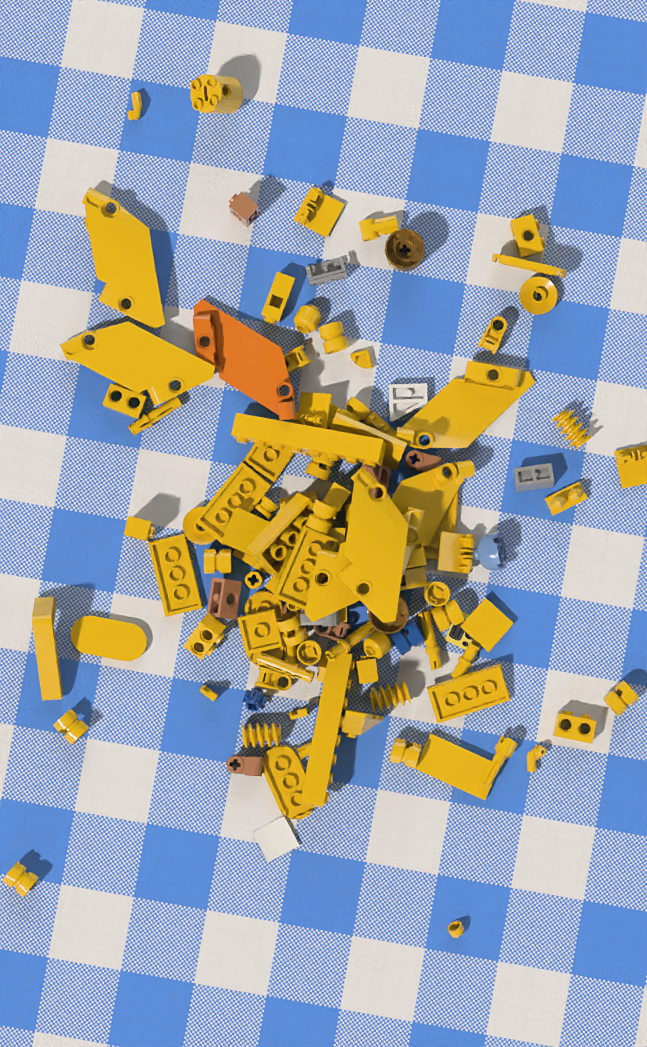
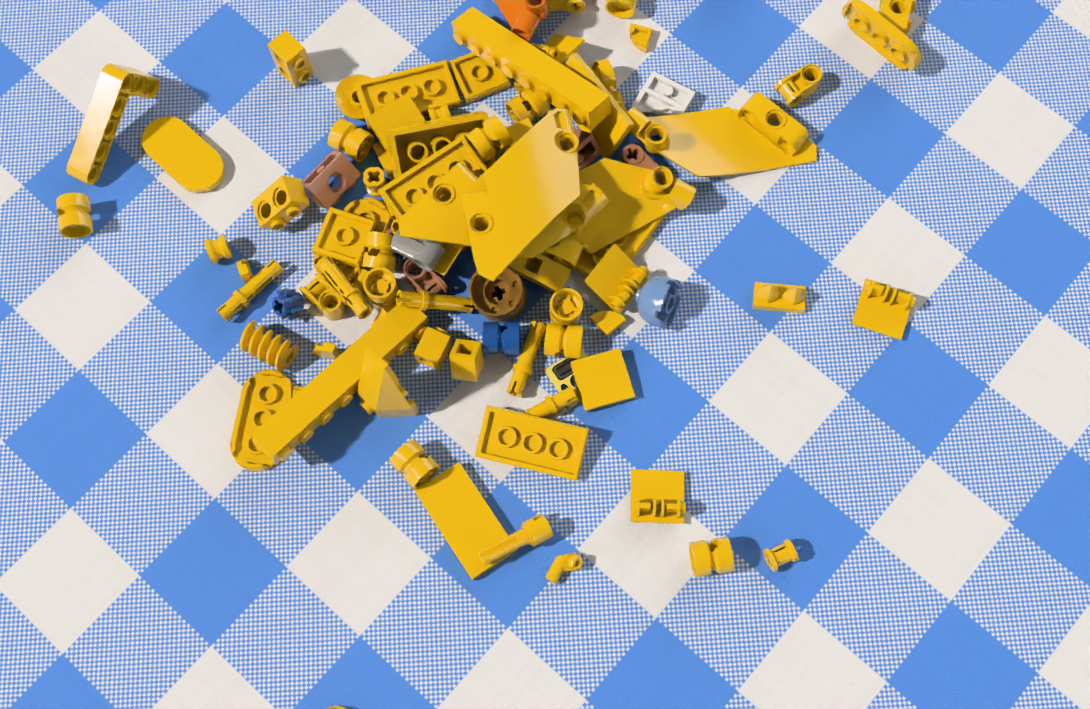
camera: 35 degrees right, 15 degrees down
(175, 575) = (297, 133): yellow tile -> none
(182, 690) = (218, 248): none -> yellow wheel
(222, 704) = (246, 293): none -> yellow pin
(249, 765) = (229, 370): nougat piece -> none
(275, 839) = (203, 475): white sticker -> none
(377, 644) = (463, 324): yellow head -> none
(389, 696) = (438, 390): yellow piece -> none
(395, 667) = (466, 360): none -> yellow brick
(466, 583) = (607, 321): none -> yellow tile
(533, 477) = (755, 252): light grey hinge -> none
(544, 288) = (876, 66): yellow dish -> none
(565, 679) = (657, 496): none -> yellow hinge
(571, 428) = (828, 224): yellow piece -> none
(573, 731) = (628, 562): yellow brick -> none

